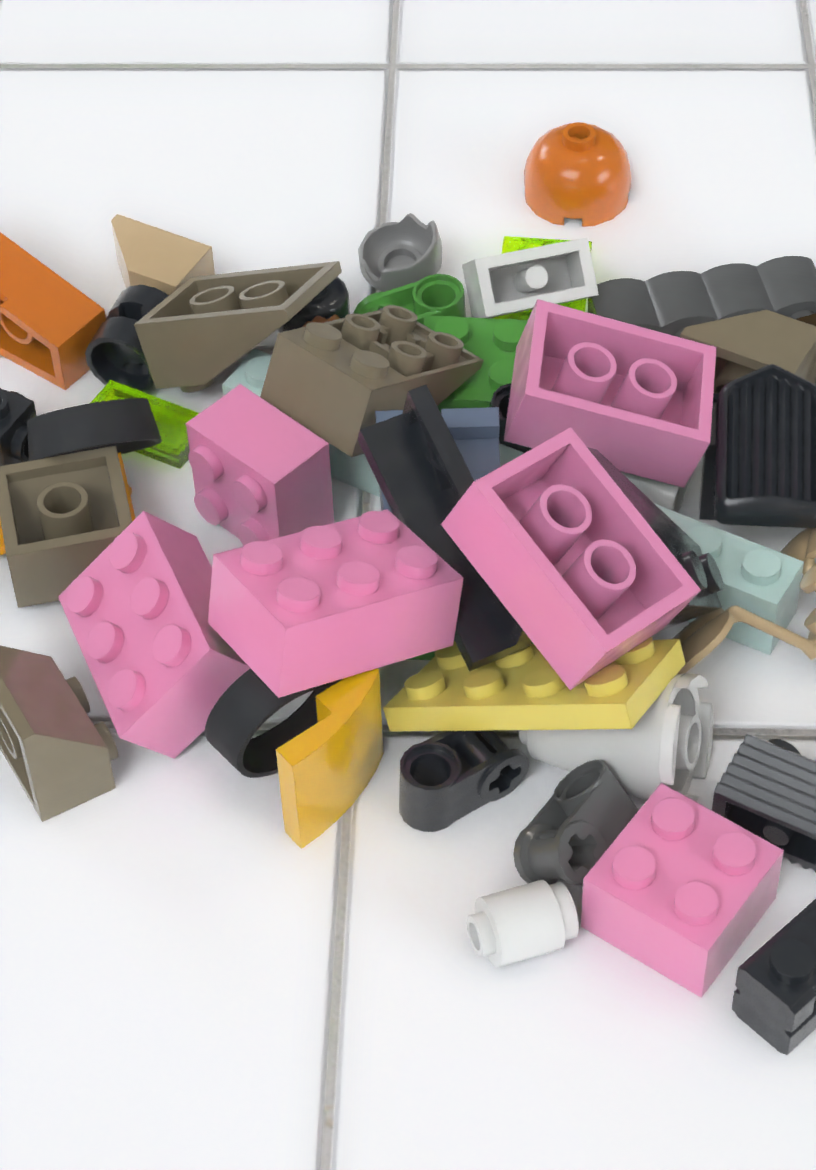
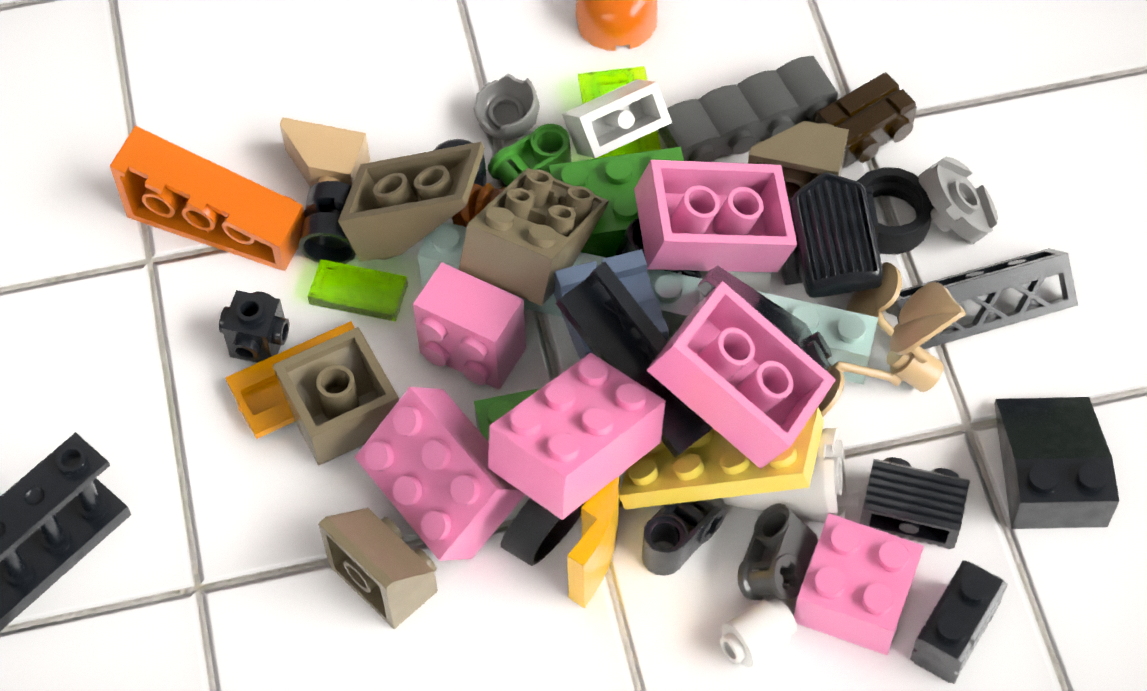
camera: 15 degrees left, 10 degrees up
(93, 426) = (332, 316): black tyre -> none

